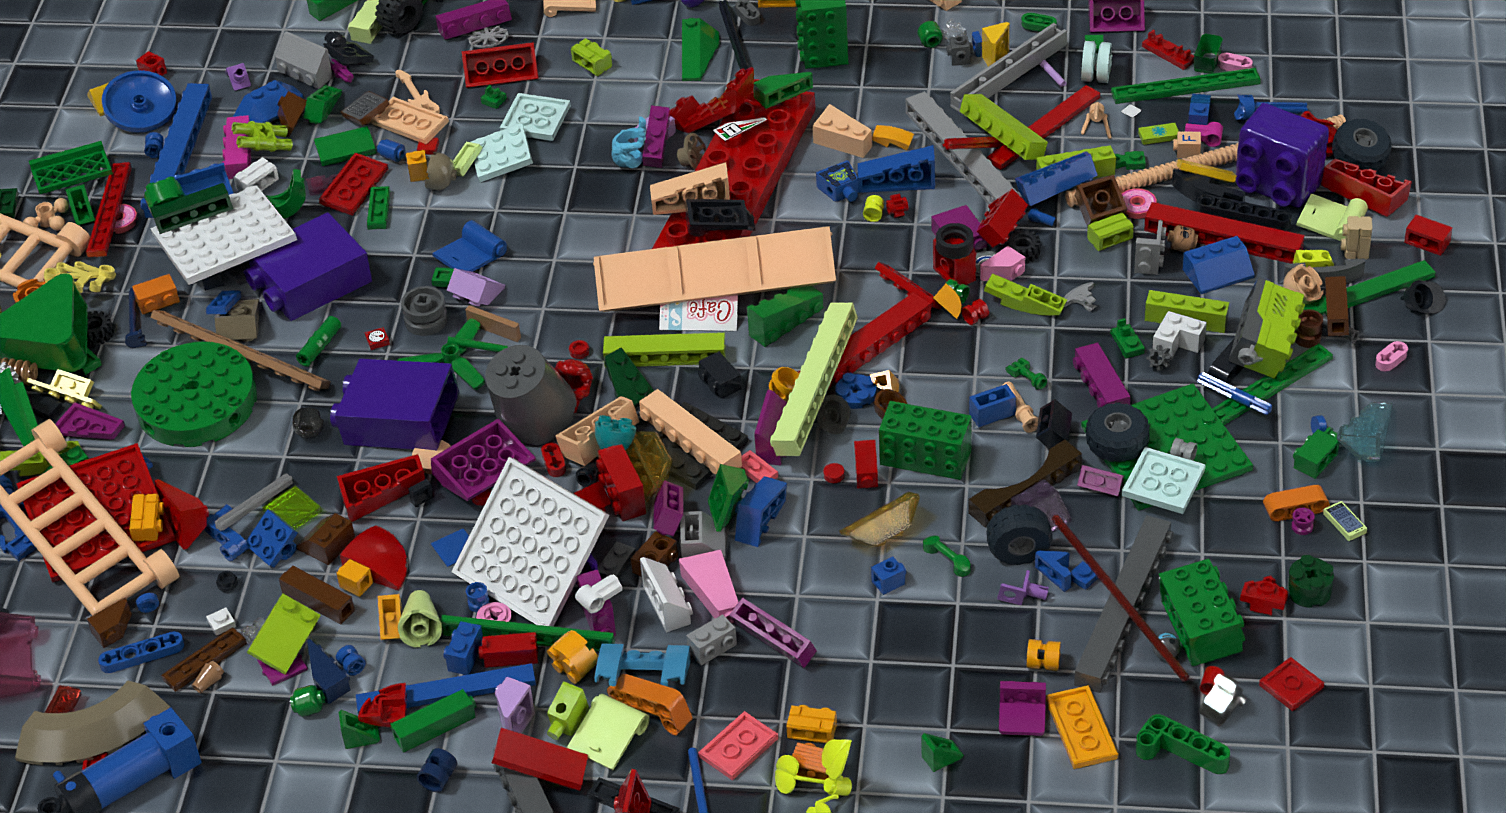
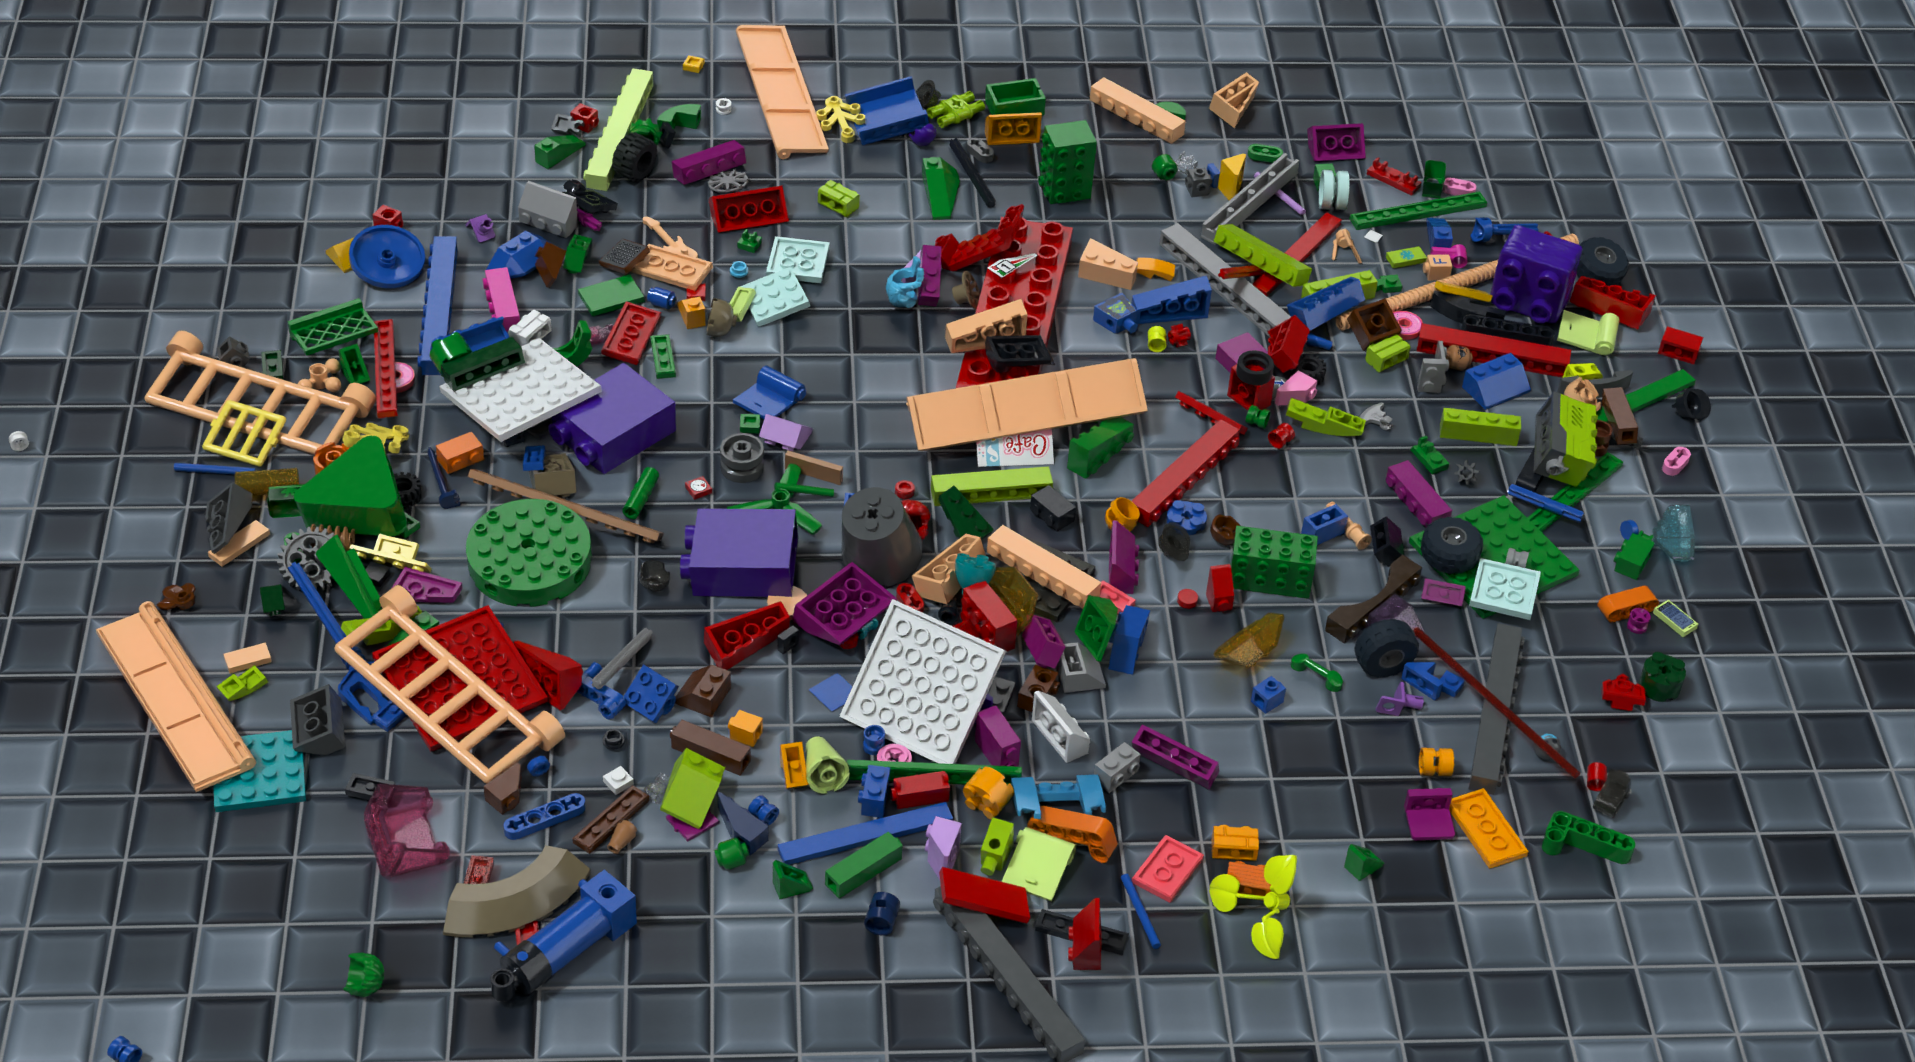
camera: 15 degrees left, 0 degrees up
(145, 517) = (517, 679): light orange brick -> none
(153, 144) = (413, 300): blue wheel -> none
(262, 136) = (527, 288): lime pin -> none
(294, 507) = (661, 659): clear neon green tile -> none
(381, 553) = (764, 701): red brick -> none
(385, 707) = (814, 855): red brick -> none
(475, 124) = (739, 269): none -> medium azure plate
(594, 596) = (1003, 732): white piece -> none
(710, 582) = (1101, 713): bright pink slope -> none
(779, 88) = (1043, 224): green slope -> none
(814, 380) = (1152, 508): yellowish green brick -> none
(885, 380) = (1214, 506): light orange brick -> none
(949, 300) = (1256, 425): light orange brick -> none
(1022, 367) = (1338, 486): green hinge -> none
(1180, 332) = (1480, 447): white brick -> none
(1201, 612) = (1574, 711): green brick -> none
(1291, 684) = (1667, 774): red tile -> none
(1357, 237) = (1620, 350): tan brick -> none

